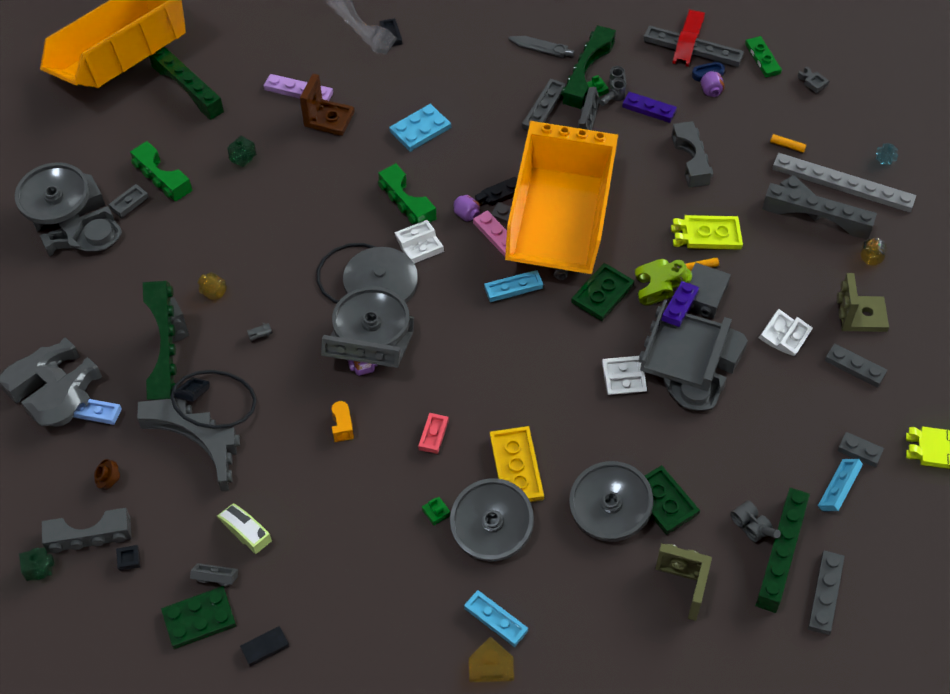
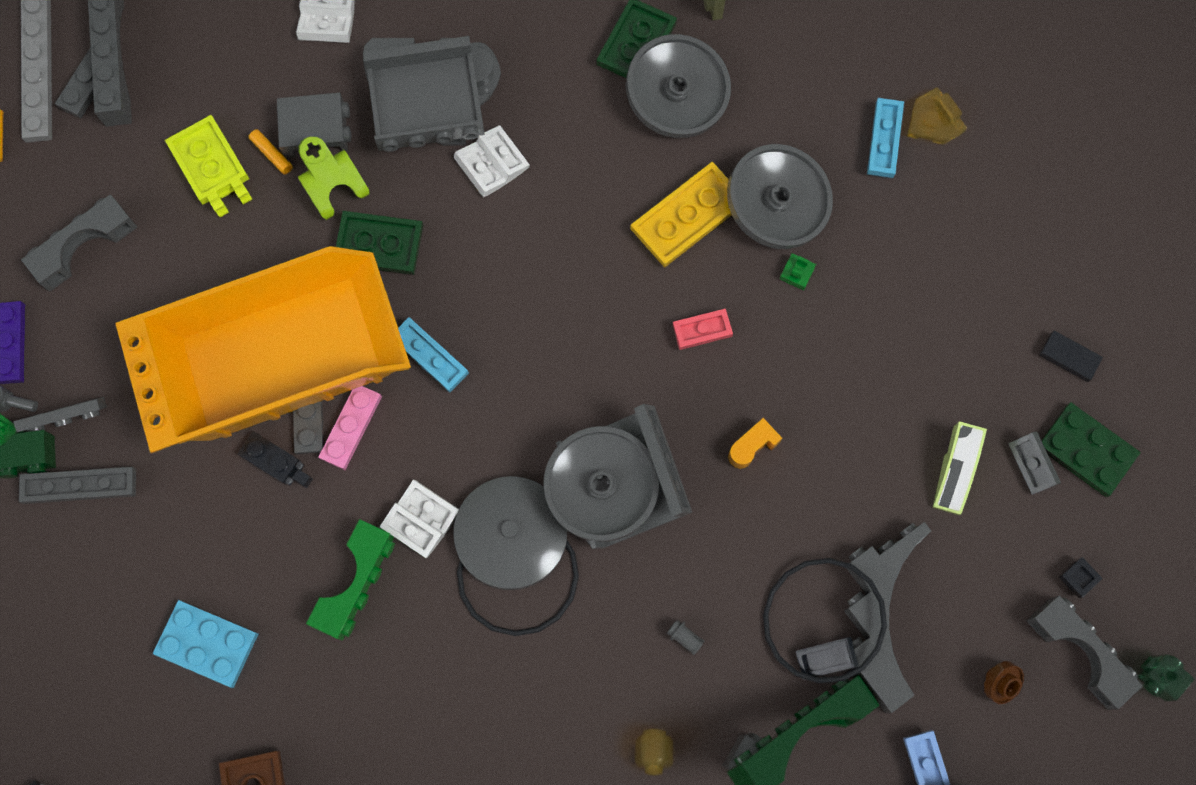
camera: 120 degrees left, 20 degrees up
(466, 207) = (329, 486): medium lavender head -> none
(680, 304) = (362, 126): dark purple plate -> none

